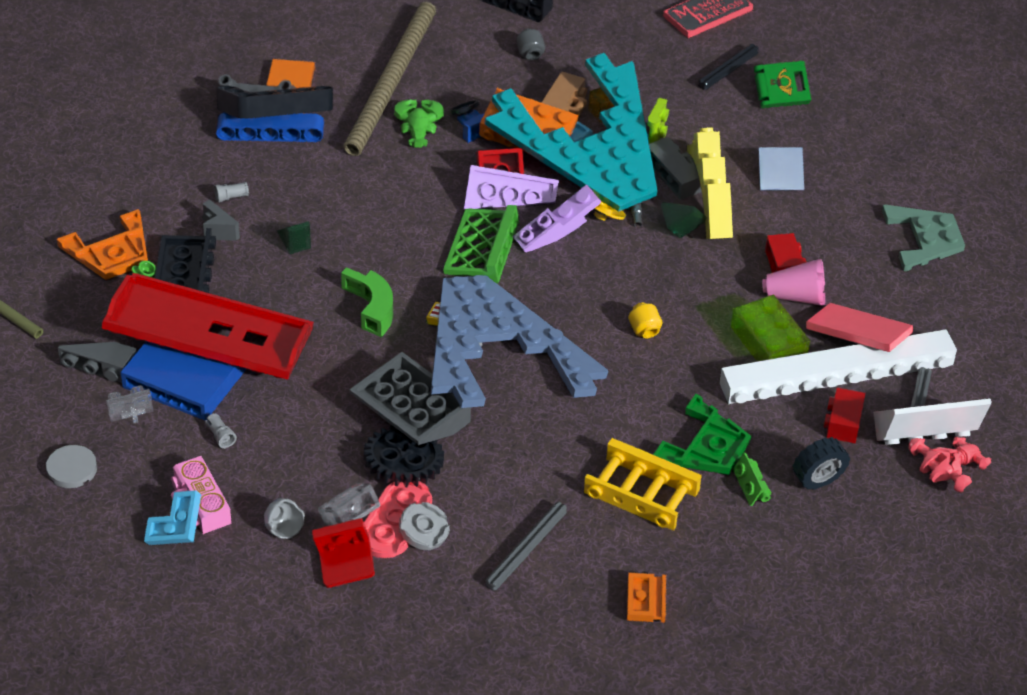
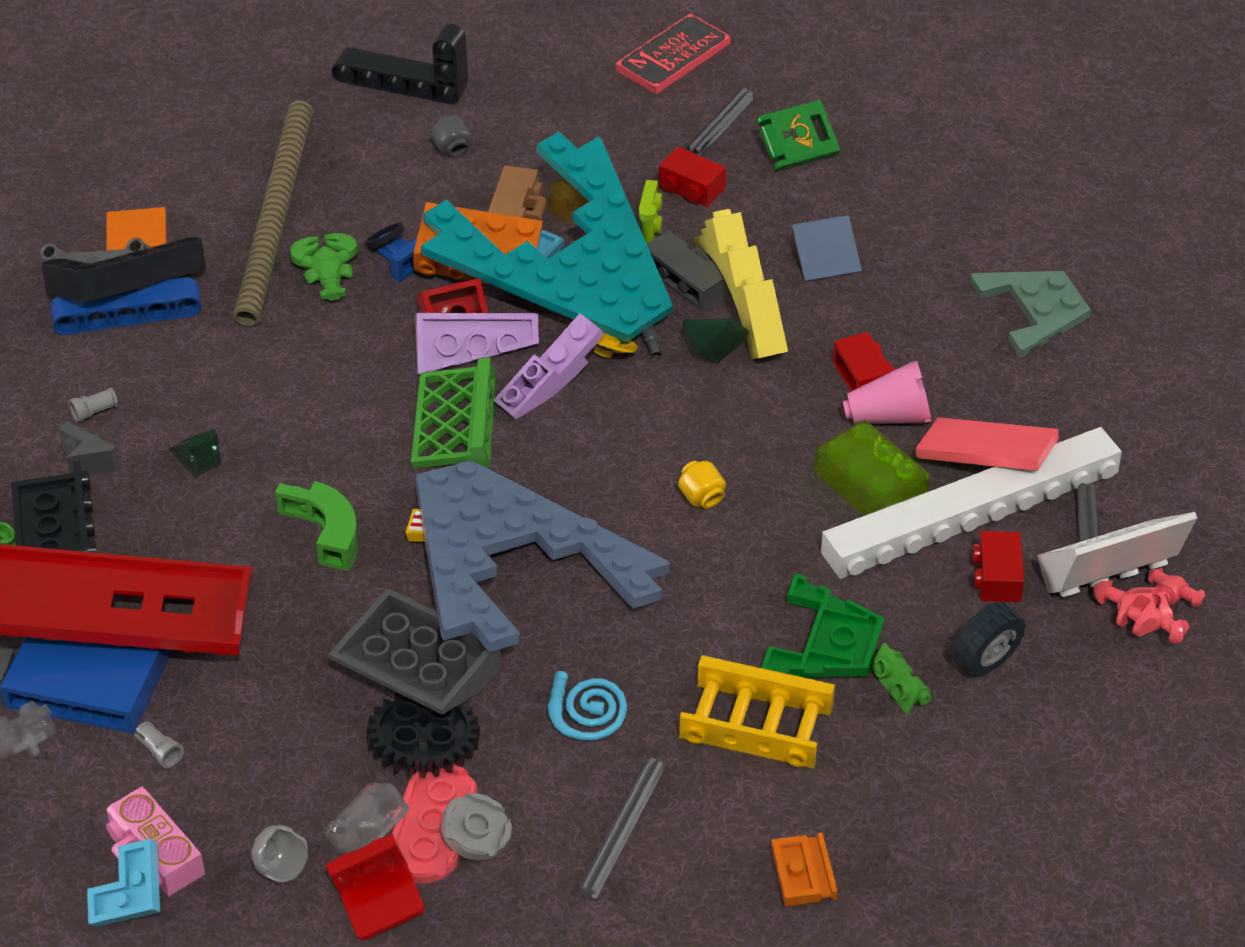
camera: 10 degrees left, 0 degrees up
(528, 461) = (594, 707): none -> medium azure piece
(697, 101) = (692, 177): none -> red piece

